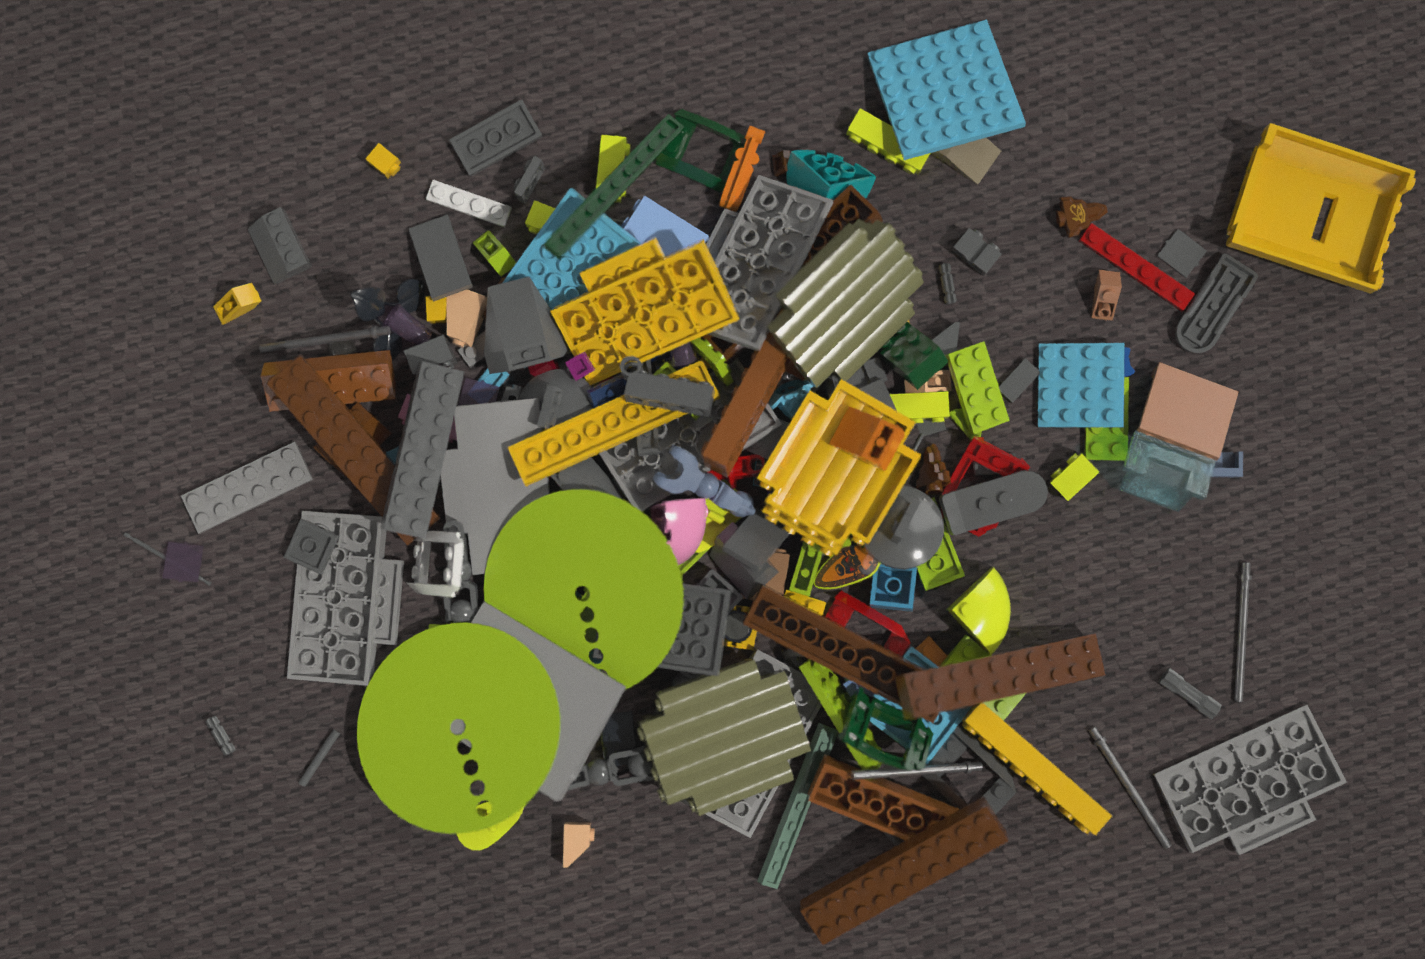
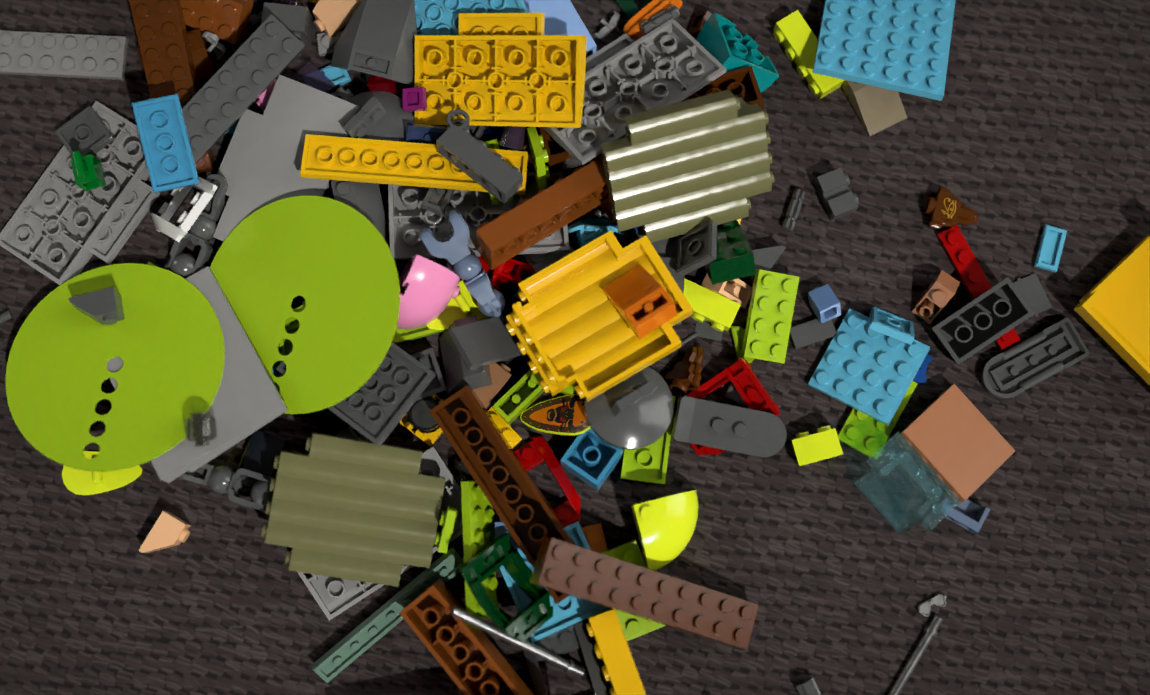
camera: 25 degrees right, 5 degrees down
(335, 577) = (87, 171): none -> green brick
(380, 409) = (218, 48): none -> light grey piece
(399, 521) = (165, 143): none -> dark azure plate
(416, 685) = (101, 305): none -> dark grey slope
(566, 741) = (200, 428): none -> clear smoke head
(704, 207) = (608, 26): none -> light grey piece
(748, 182) = (659, 19): none -> dark grey axle
(806, 704) = (446, 520): none -> lime plate
(888, 366) = (697, 248): none -> dark grey tile
(1016, 352) = (824, 303): none -> medium blue brick
(1082, 340) = (891, 325): none -> medium azure tile
(1156, 297) = (983, 320): none -> dark grey brick
(1179, 200) = (1050, 248): none -> medium azure tile
(1238, 548) = (925, 607): none -> light grey piece

